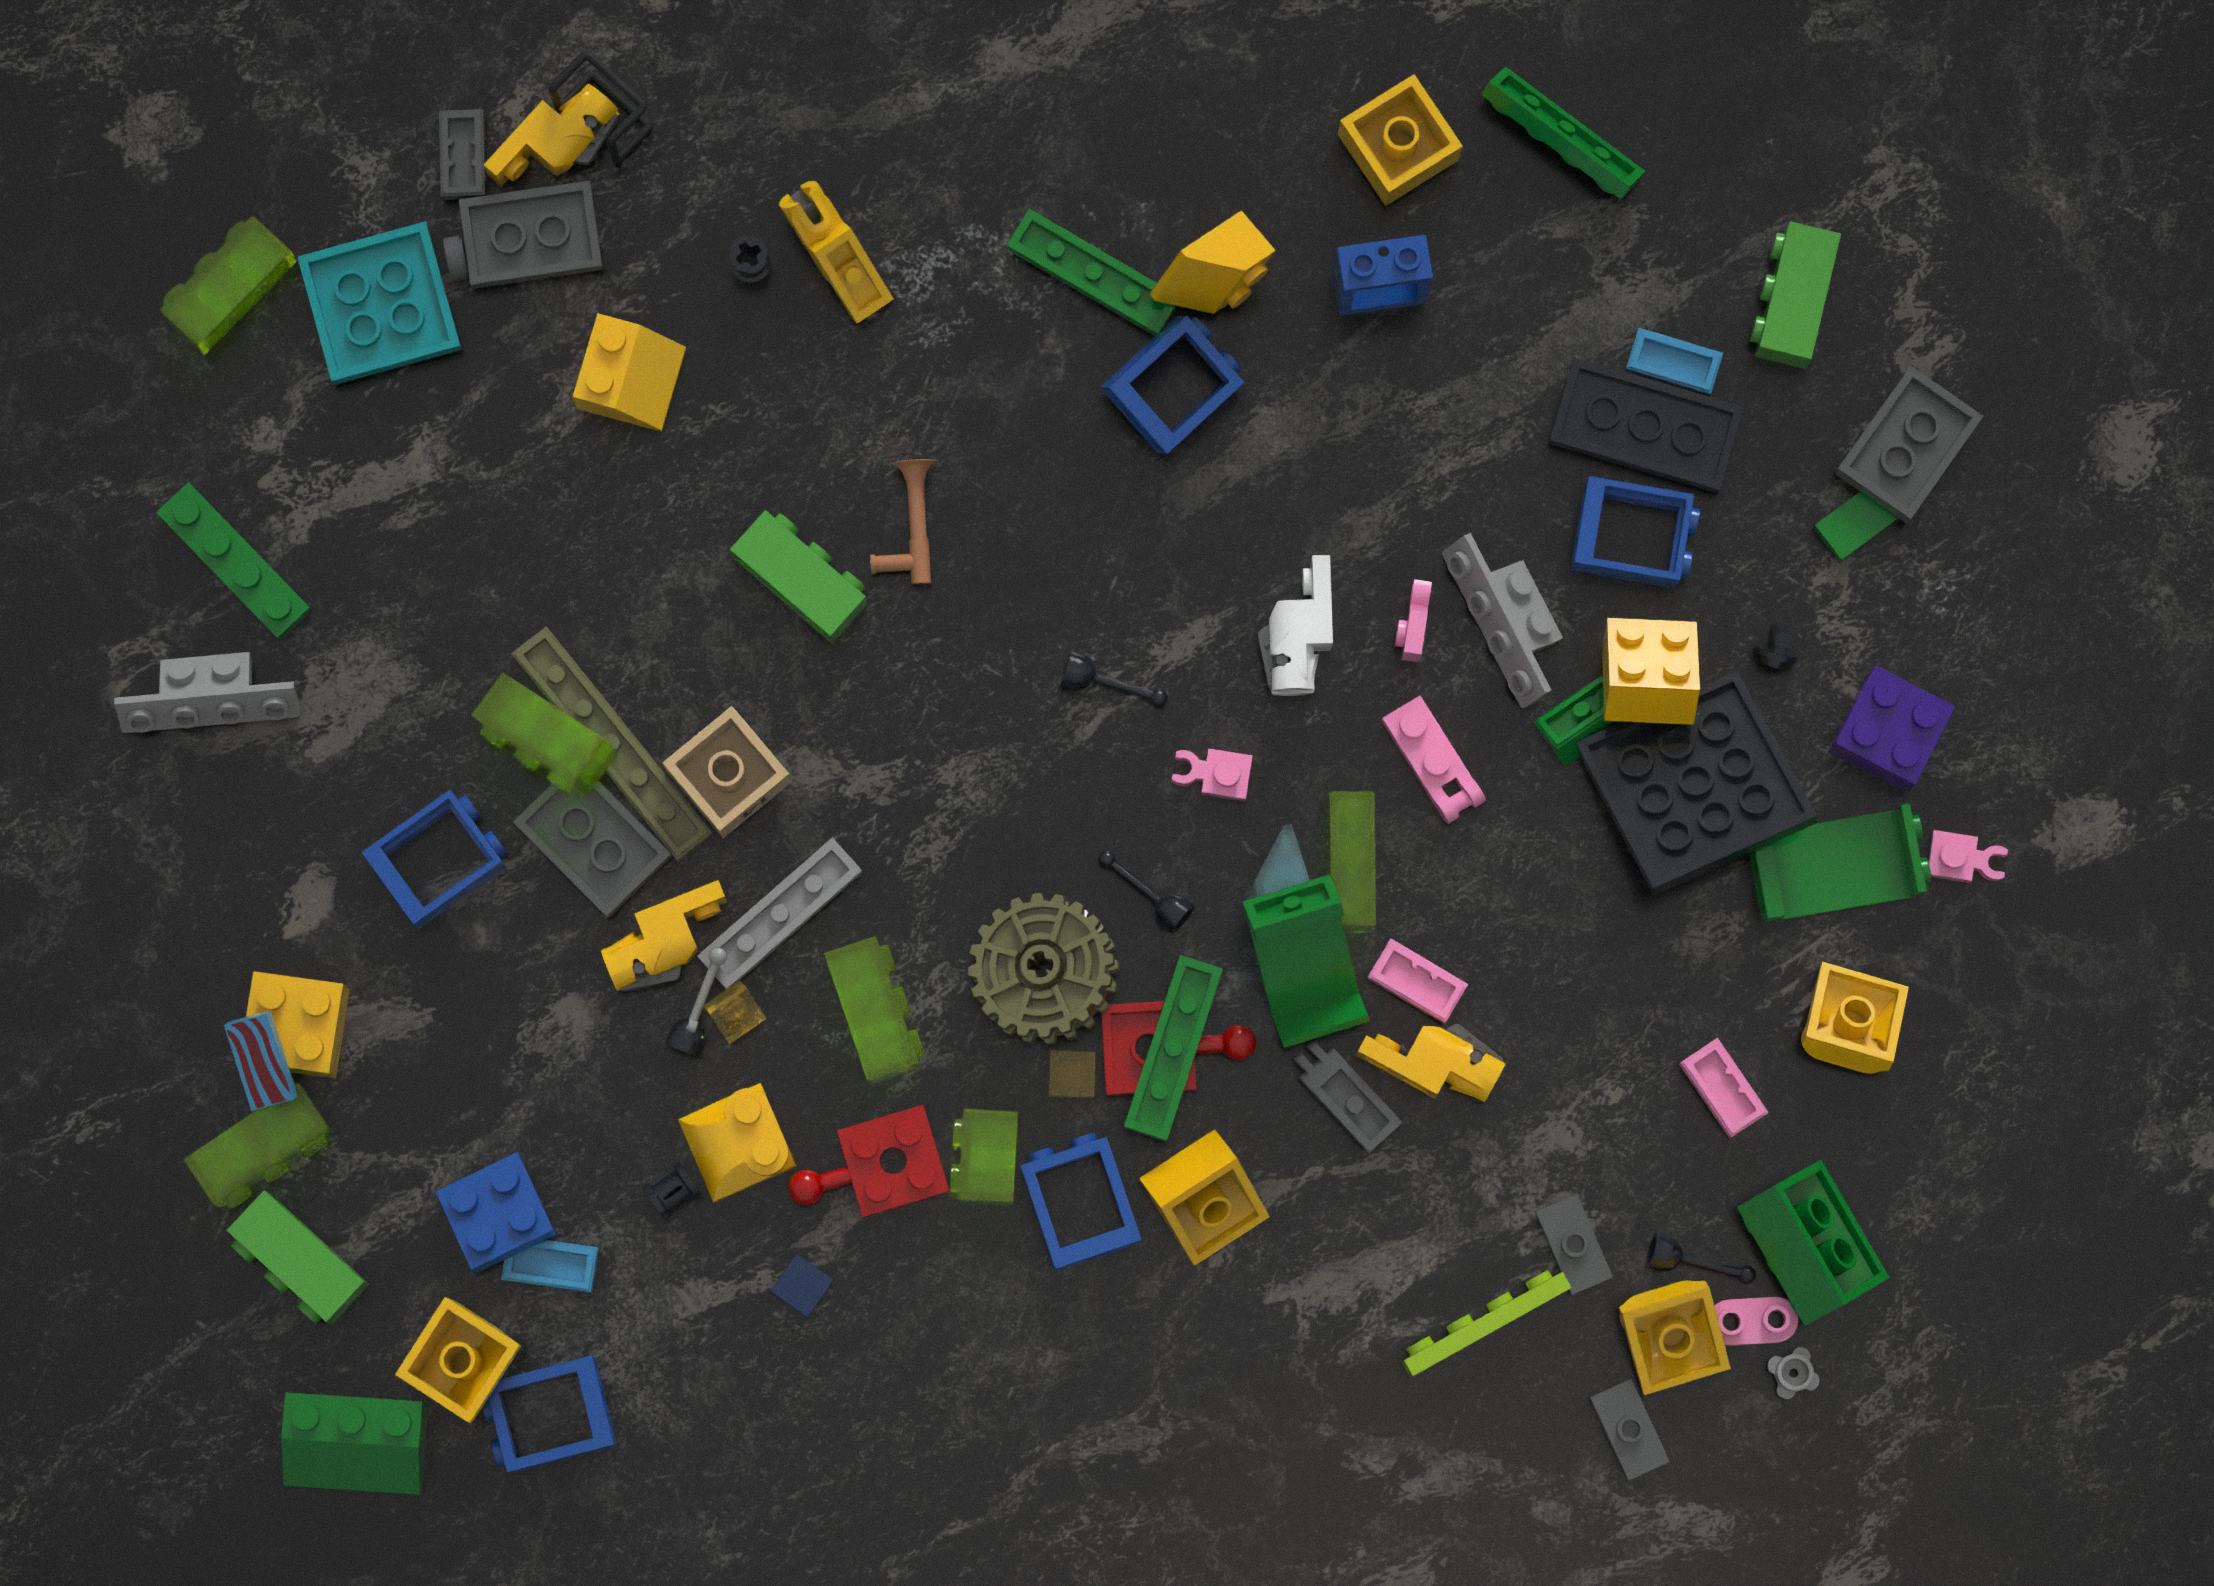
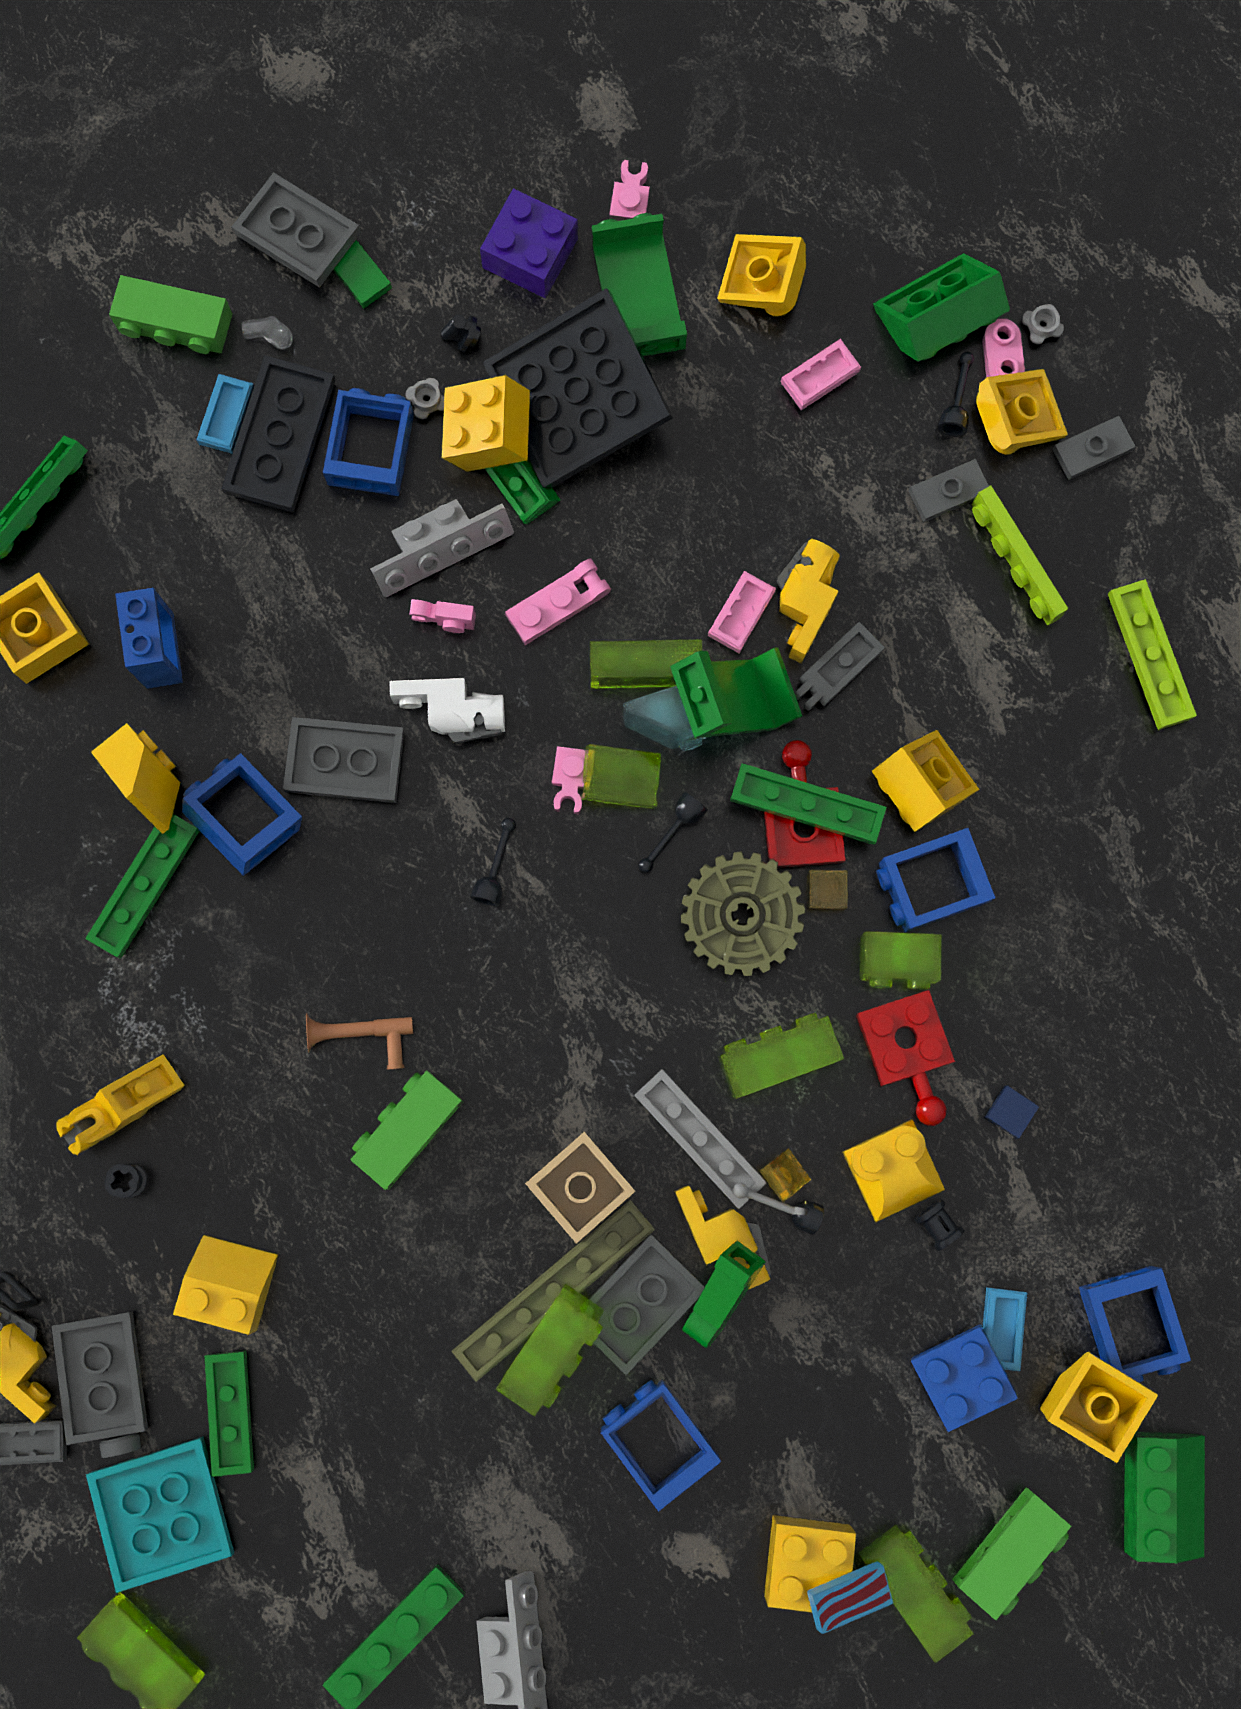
camera: 90 degrees left, 0 degrees up
(486, 377) = (229, 1413): none -> green plate
(600, 930) = (722, 1294): none -> green leg
(1214, 830) = (621, 776): none -> clear neon green plate
(1239, 504) = (343, 759): none -> dark grey plate
(1359, 1485) = (1151, 654): none -> lime plate
(1697, 591) = (424, 388): none -> light grey plate
(1781, 415) = (271, 329): none -> clear arm

